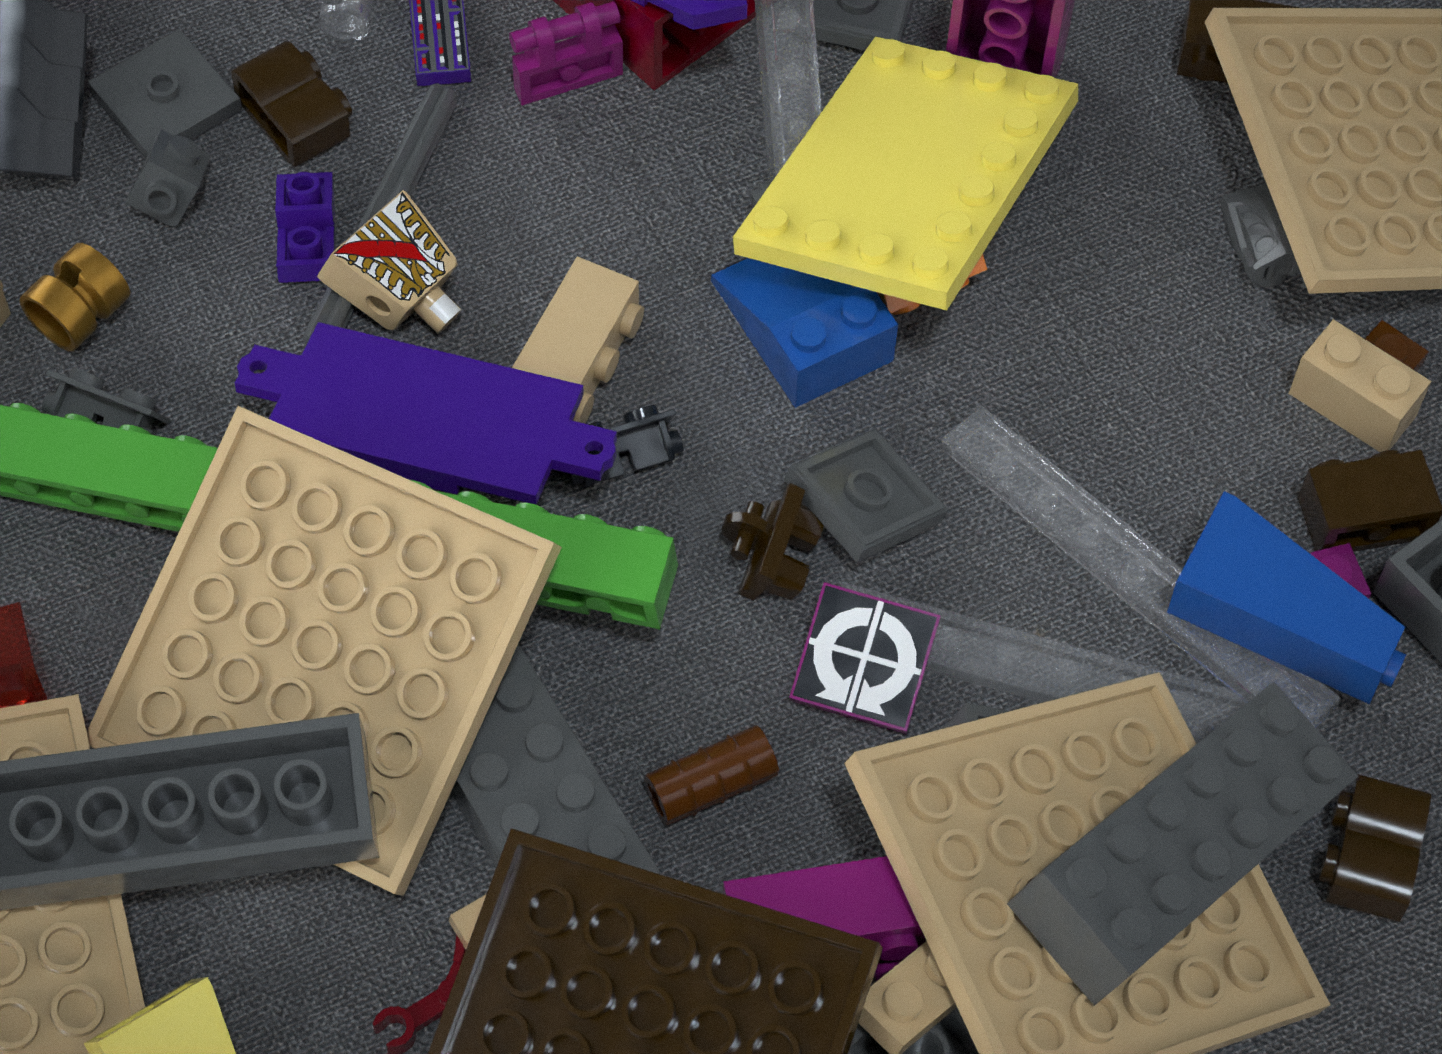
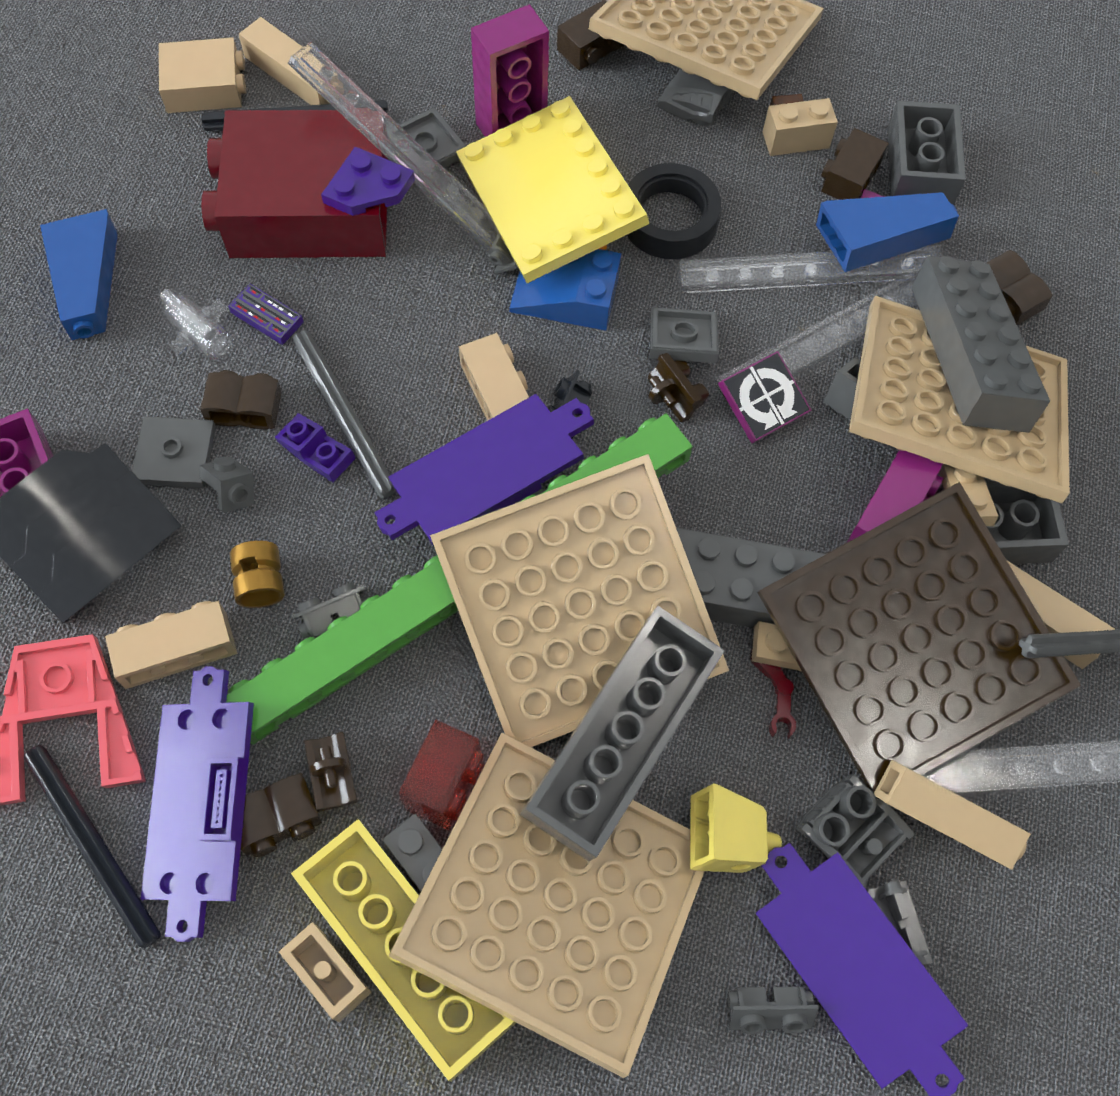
camera: 50 degrees left, 5 degrees up
(395, 268) = (385, 424): torso -> none
(570, 64) = (339, 268): magenta plate -> none
(711, 775) = (768, 500): reddish brown axle -> none
(1064, 281) = (684, 181): none -> black tyre

